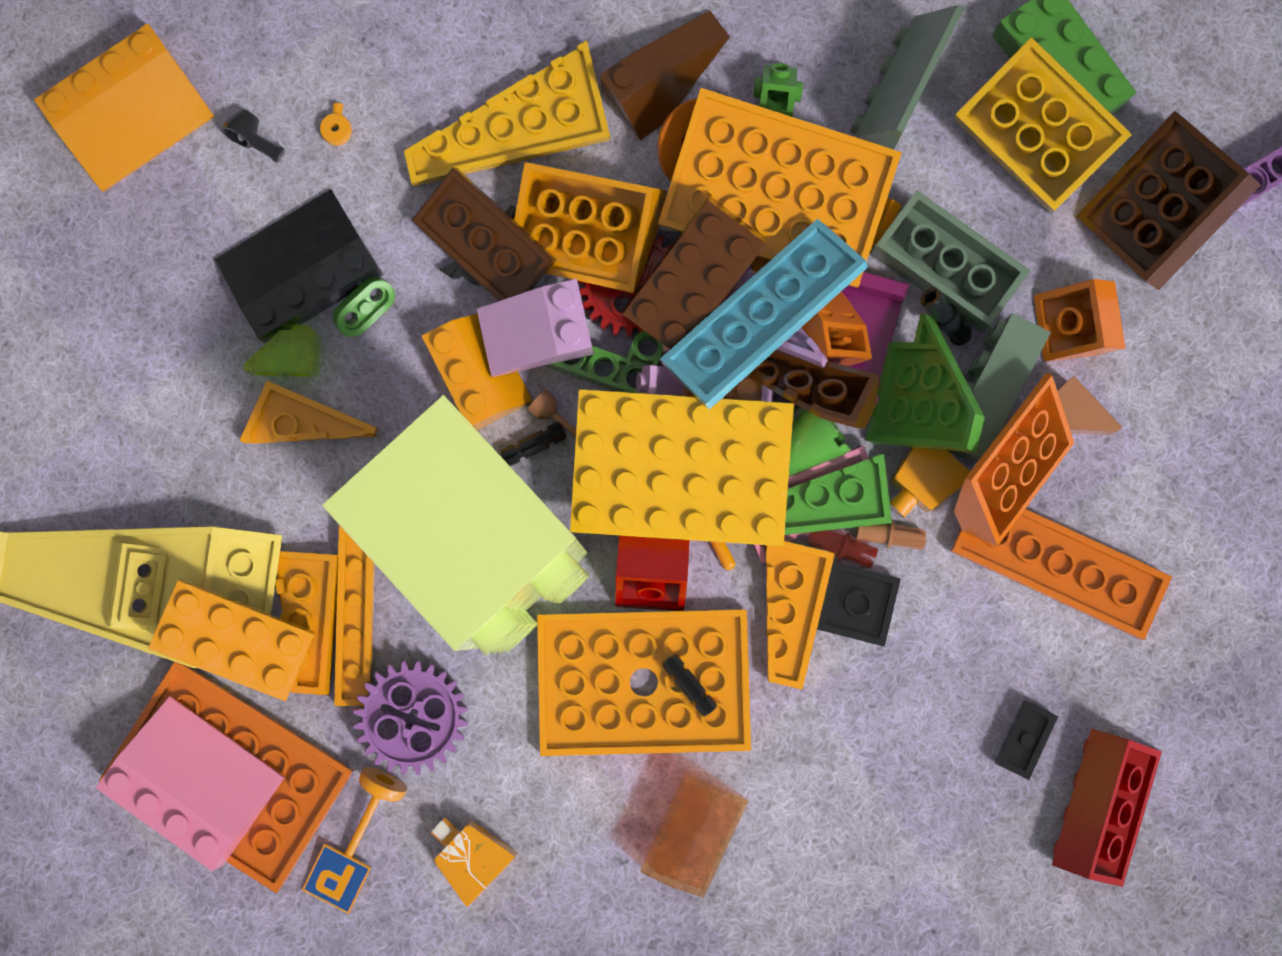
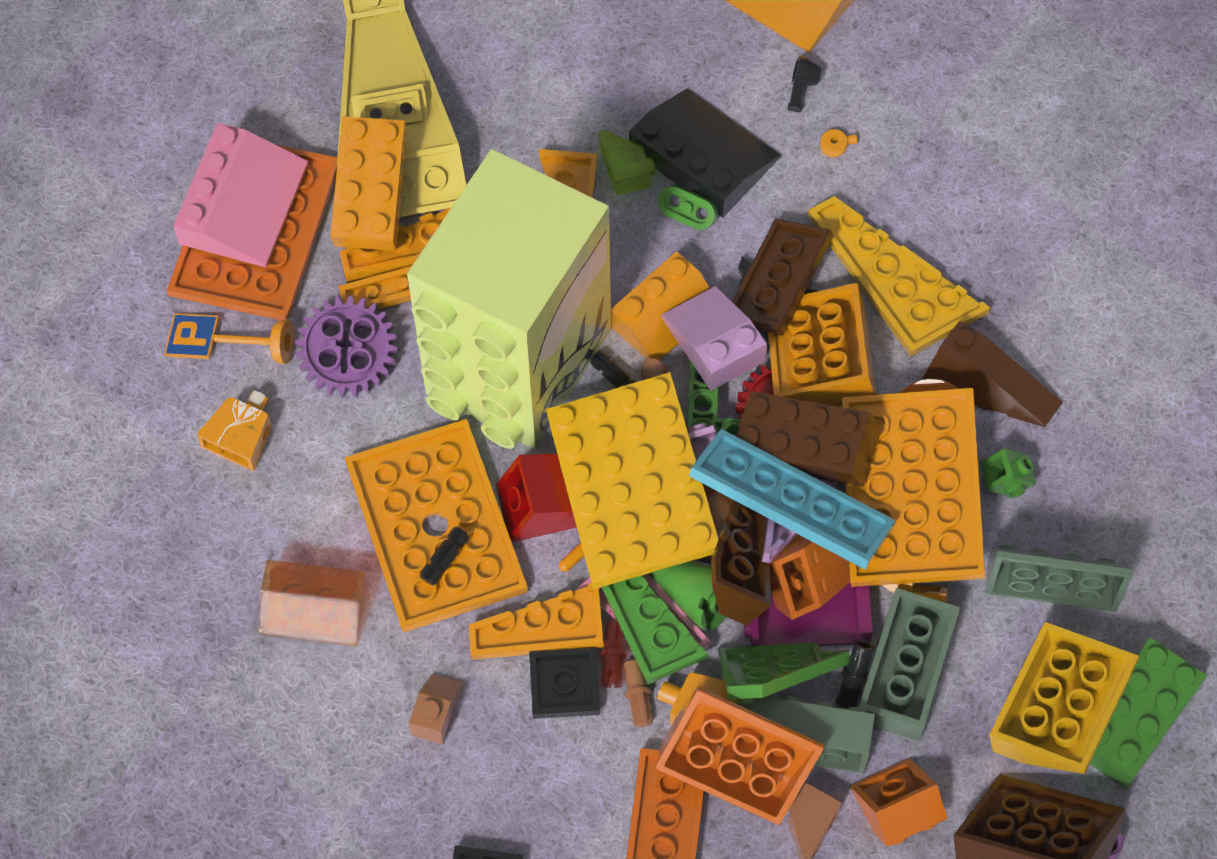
camera: 70 degrees right, 20 degrees down
(844, 739) = (435, 708): none -> nougat slope

